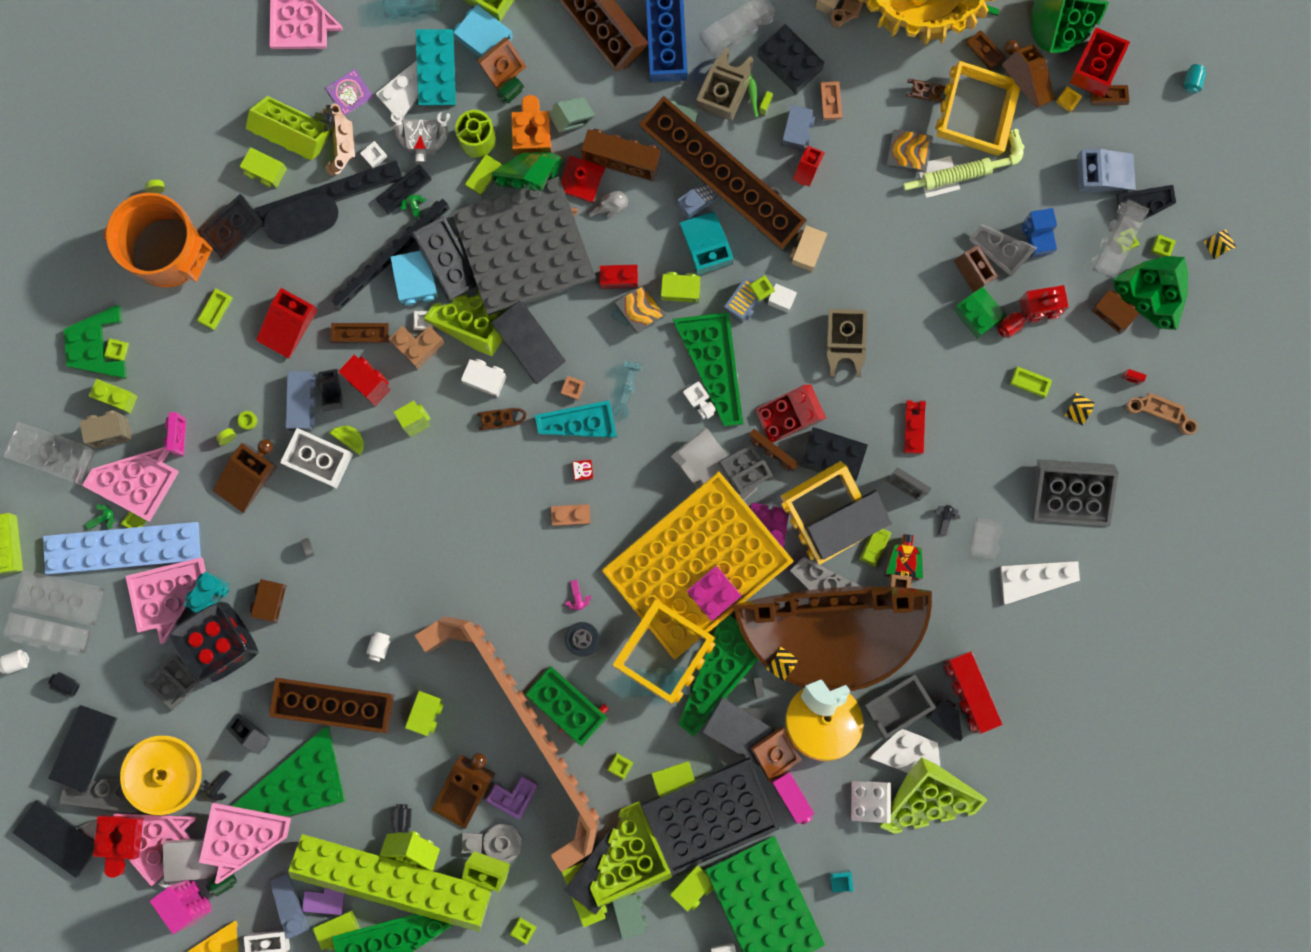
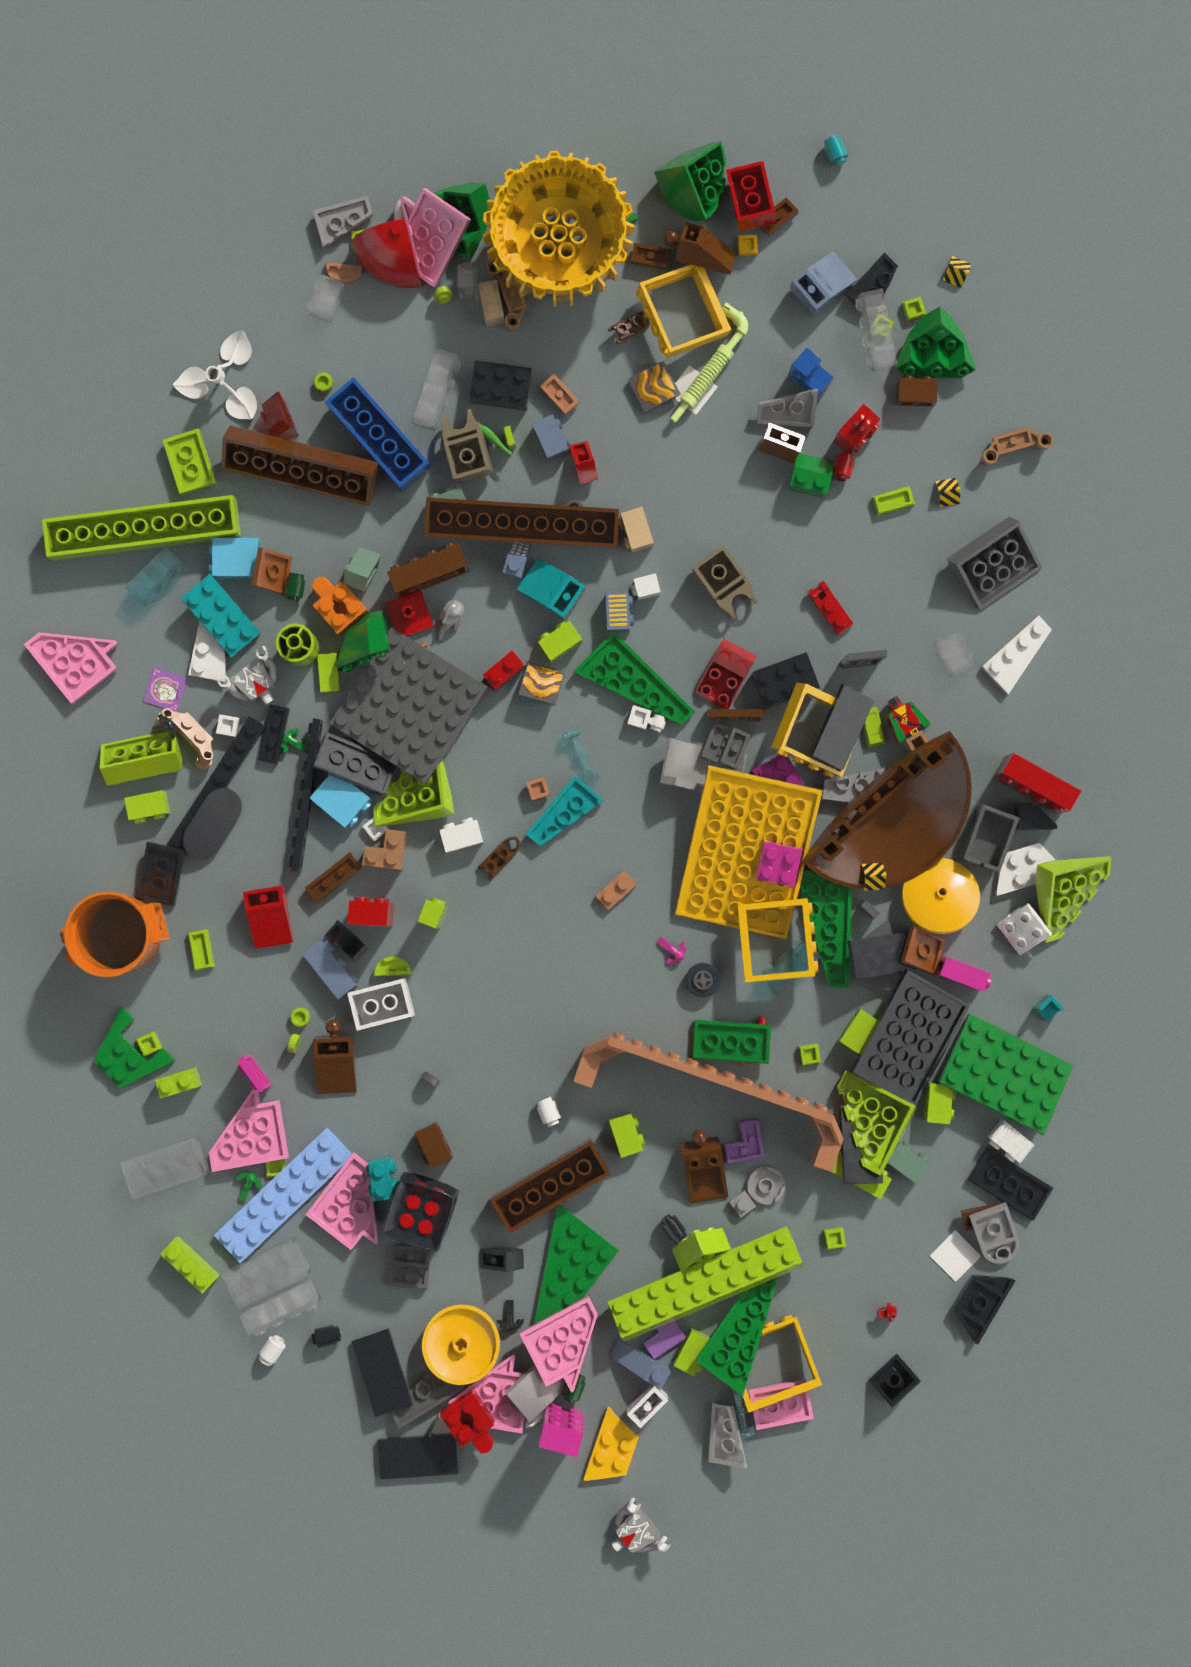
camera: 40 degrees left, 5 degrees up
(105, 430) = (196, 1114): dark tan brick -> none
(155, 186) = (72, 889): lime tile -> none
(486, 871) = (772, 1217): lime brick -> none
(528, 342) = (474, 780): black tile -> none
(582, 470) = (597, 847): tile -> none
(761, 288) = (625, 592): lime tile -> none
(823, 701) = (926, 881): light aqua brick -> none
(948, 509) = (907, 654): black piece -> none
(1134, 376) = (971, 433): red tile -> none

